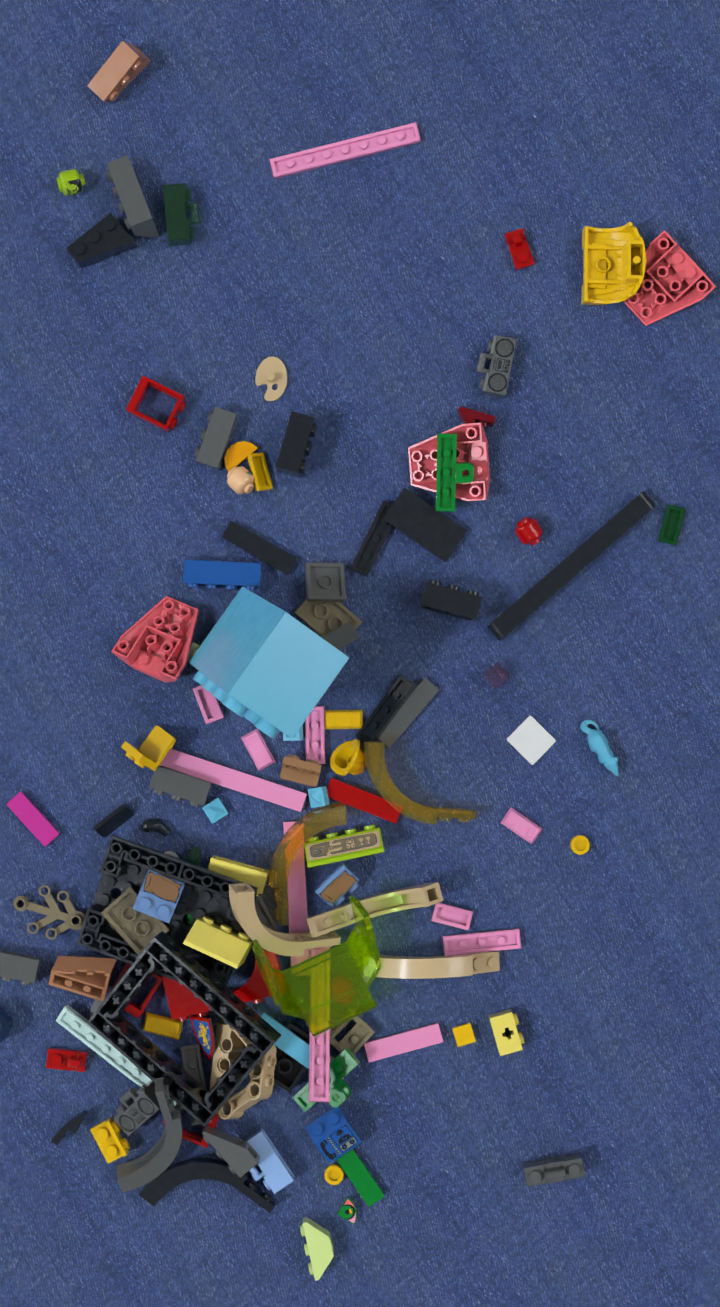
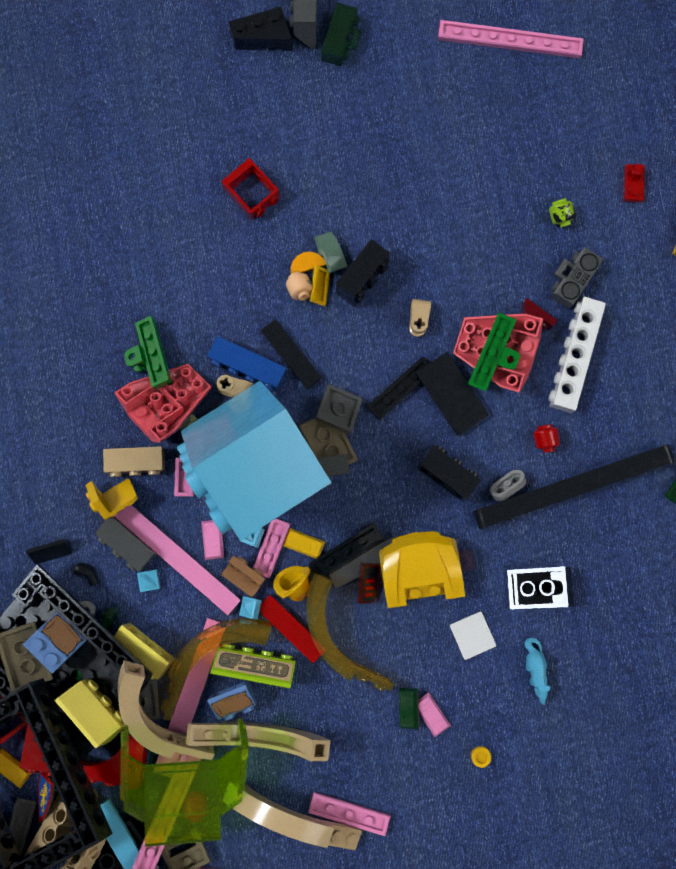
camera: 20 degrees right, 5 degrees down
(128, 602) = (149, 354): none -> green plate
(156, 707) = (134, 461): none -> tan brick
(216, 438) = (292, 240): dark grey brick -> none
(222, 600) = (236, 385): none -> tan piece
(257, 434) = (331, 251): none -> sand green slope
(272, 372) = (365, 203): tan piece -> none
(364, 461) = (419, 315): none -> tan piece
(416, 731) = (368, 582): none -> slope
(452, 916) = (331, 777): bright pink tile -> none
(458, 698) = (420, 568): none -> yellow piece
(461, 307) = (562, 212): none -> lime head
(498, 828) = (409, 708): none -> dark green tile
(510, 589) = (508, 485): none -> light grey plate
(527, 391) = (594, 311): none -> white brick
(575, 672) = (540, 588): none -> slope

